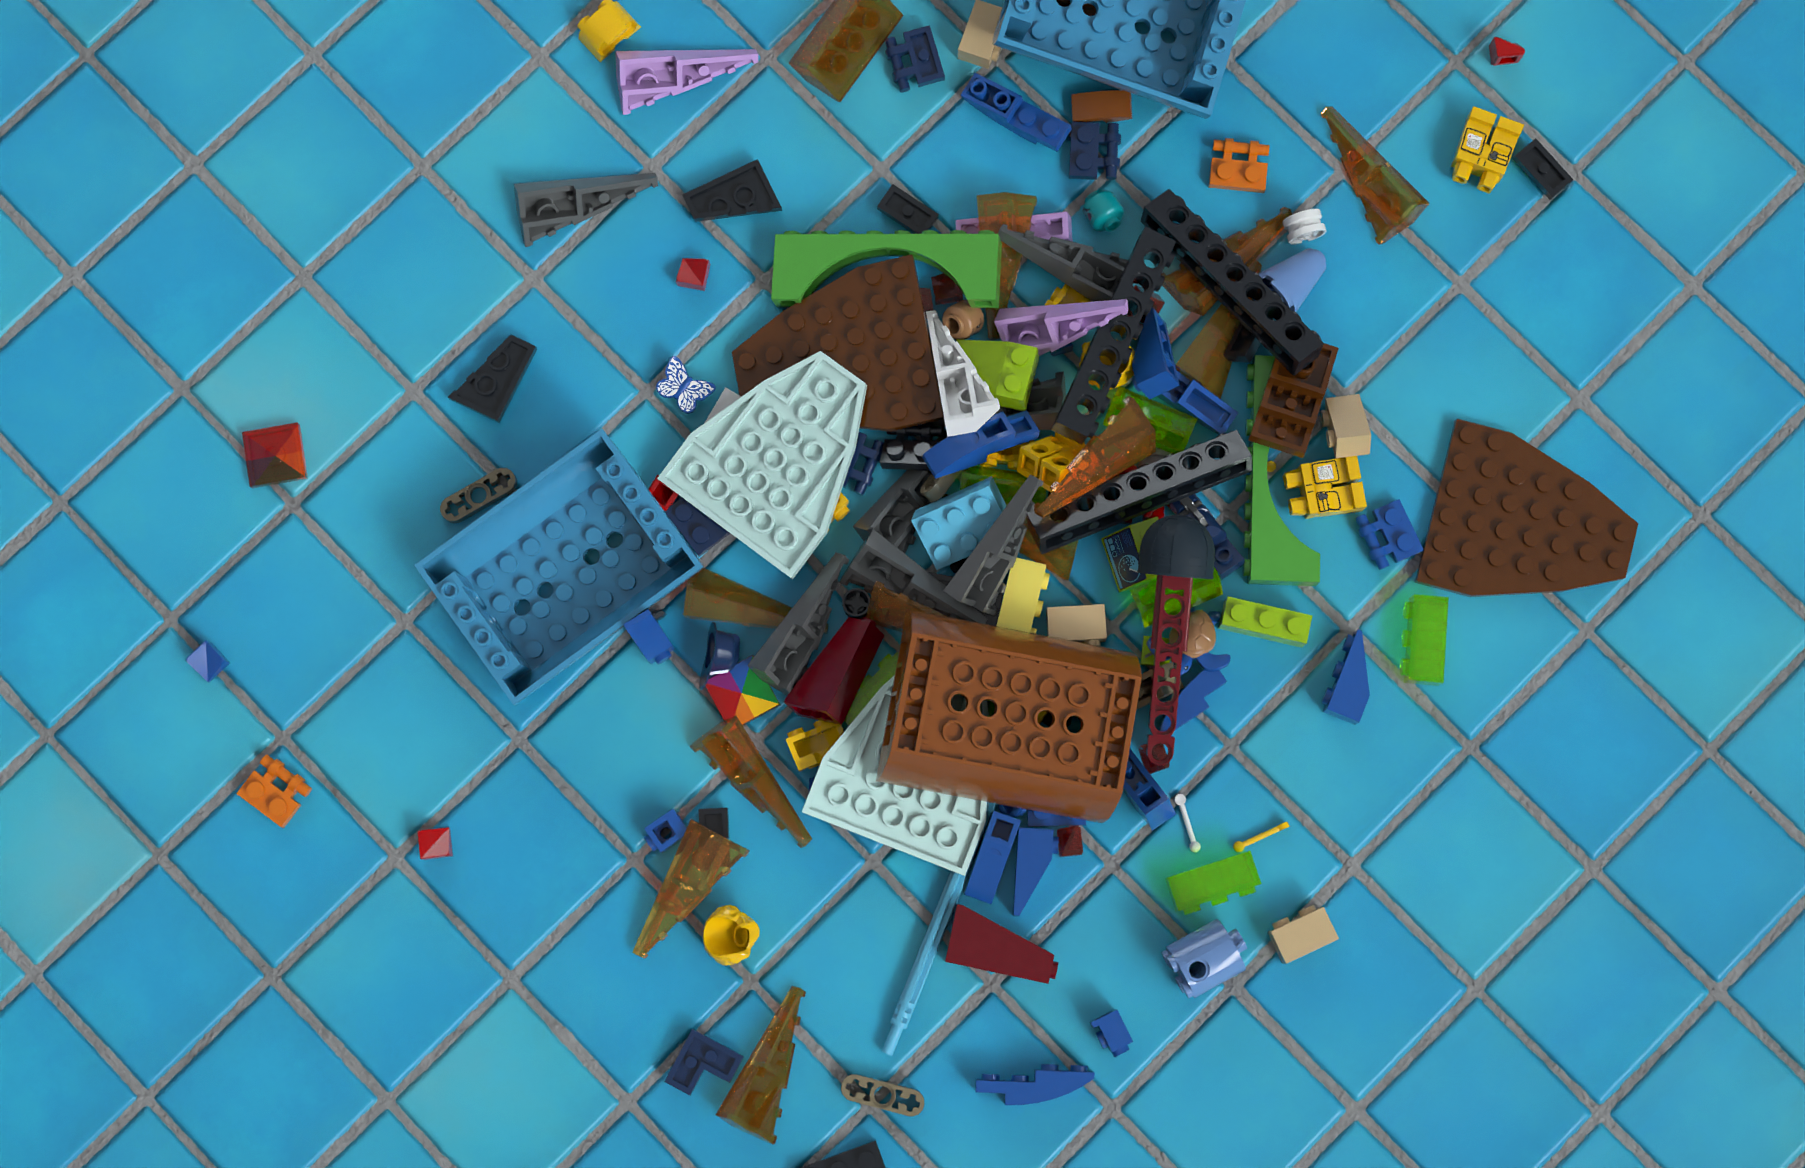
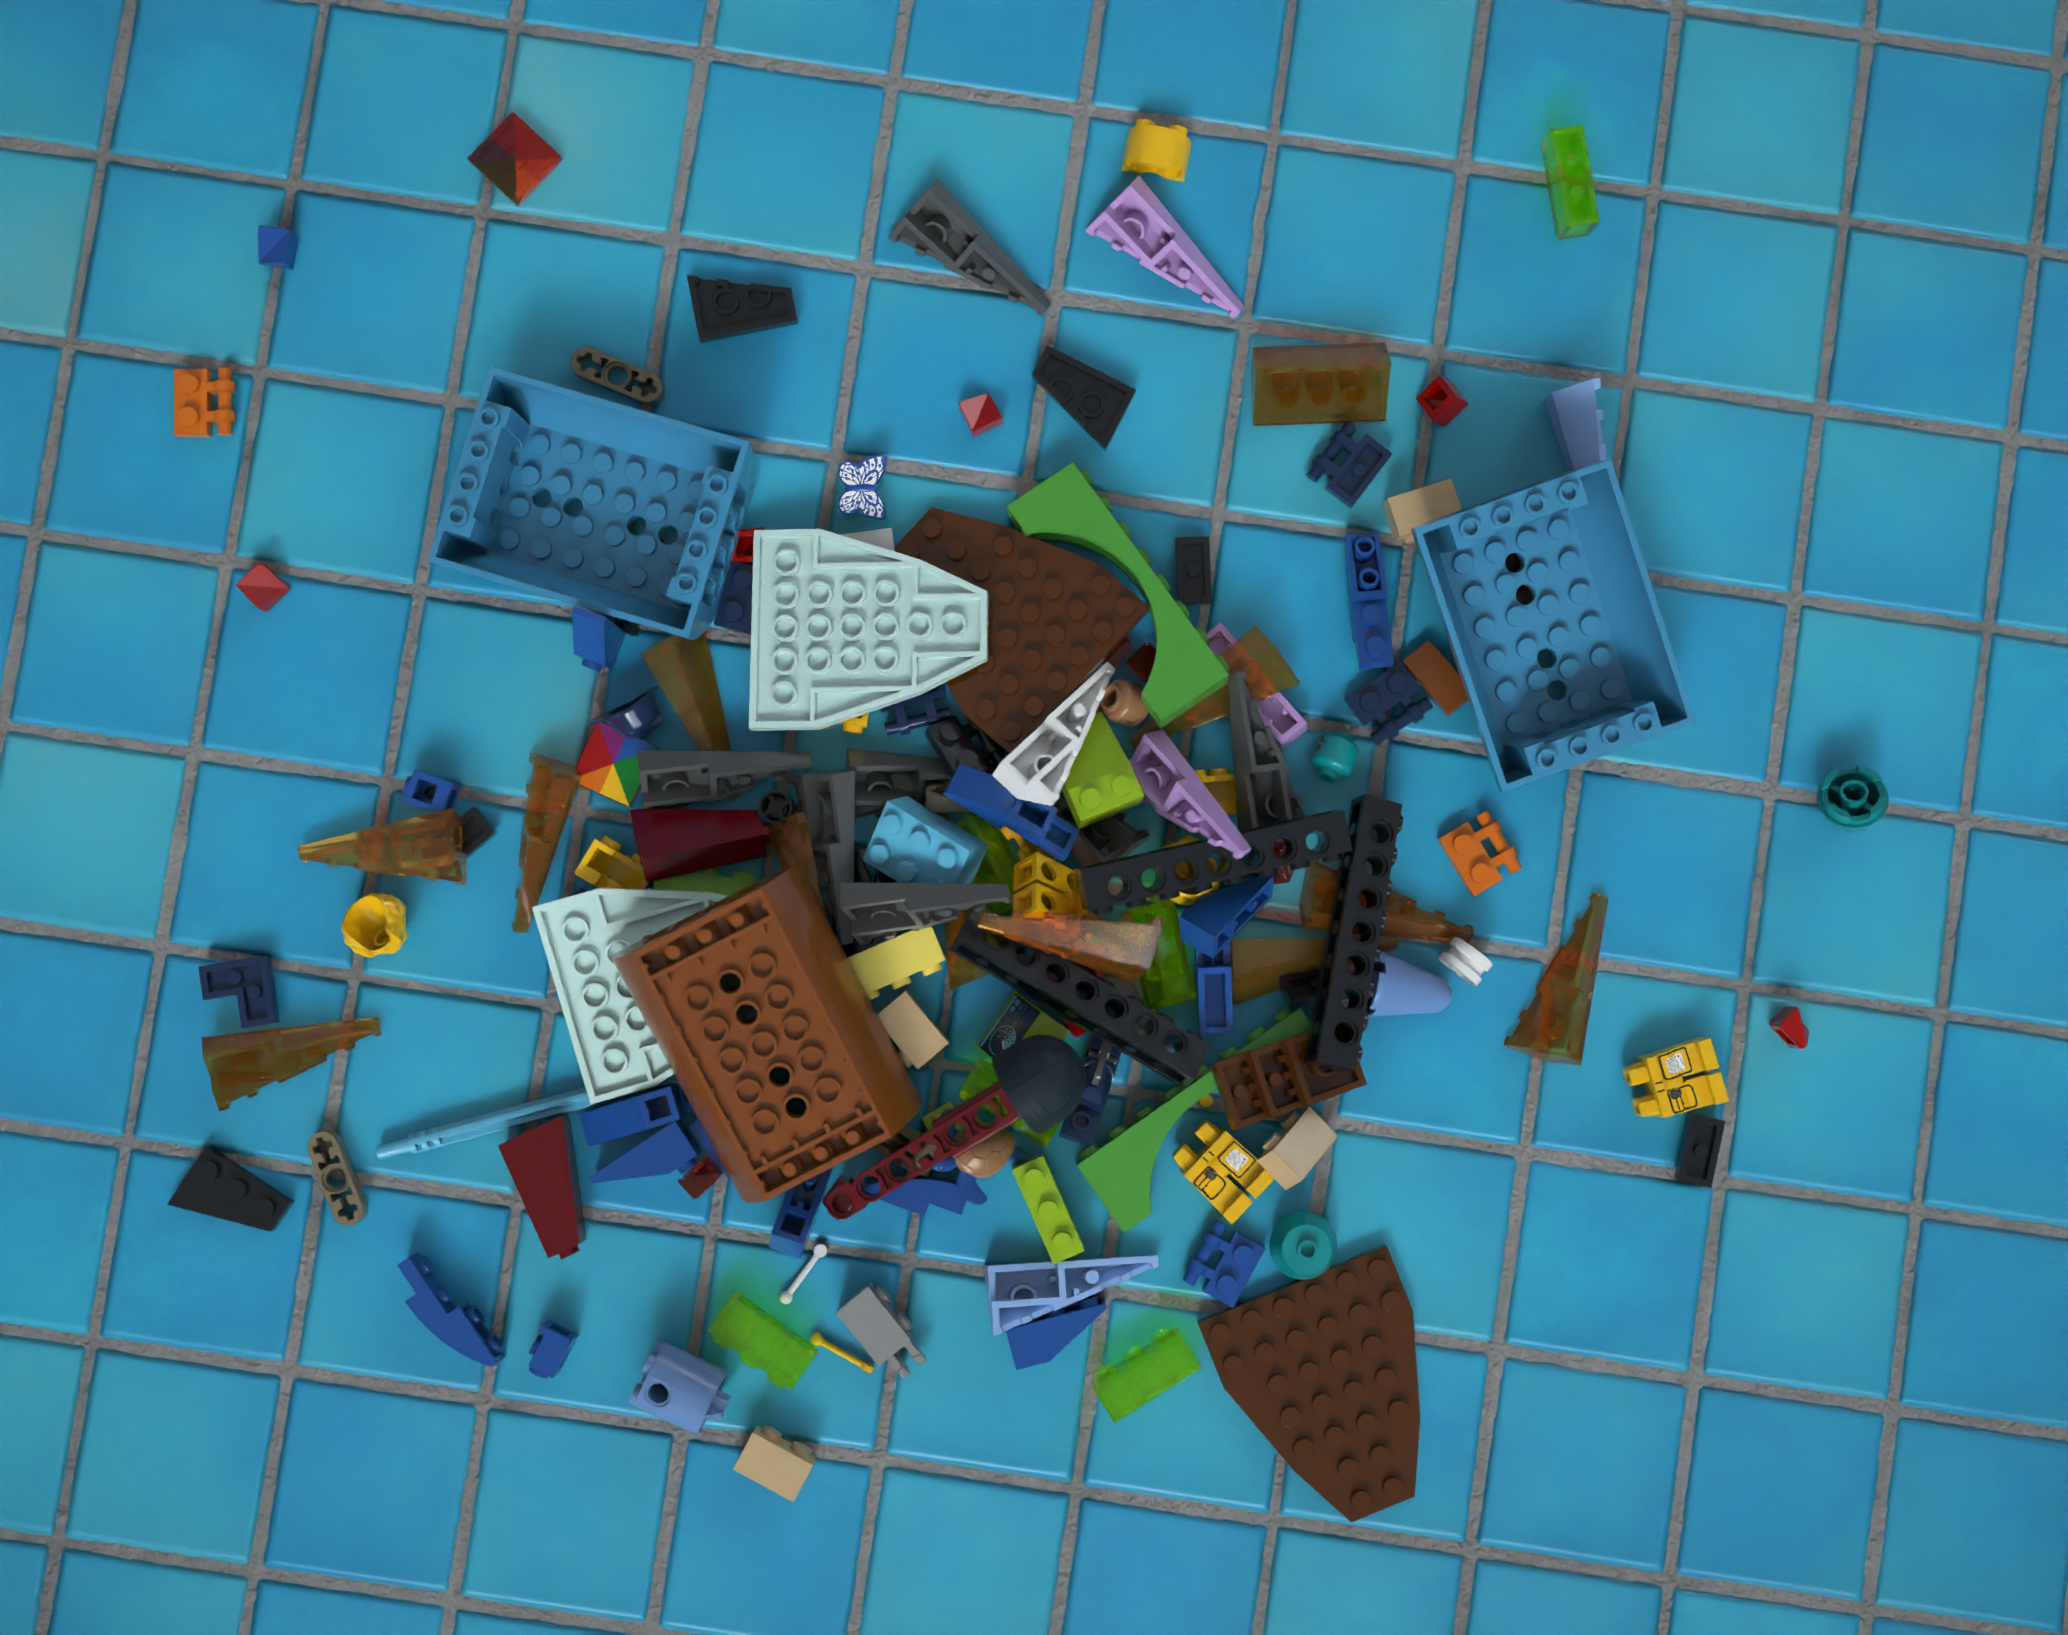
camera: 45 degrees right, 5 degrees up
(1262, 795) = (880, 1328): none -> light grey hinge
(1312, 674) = (1031, 1289): none -> light blue wedge
(1416, 472) = (1303, 1245): none -> teal cone

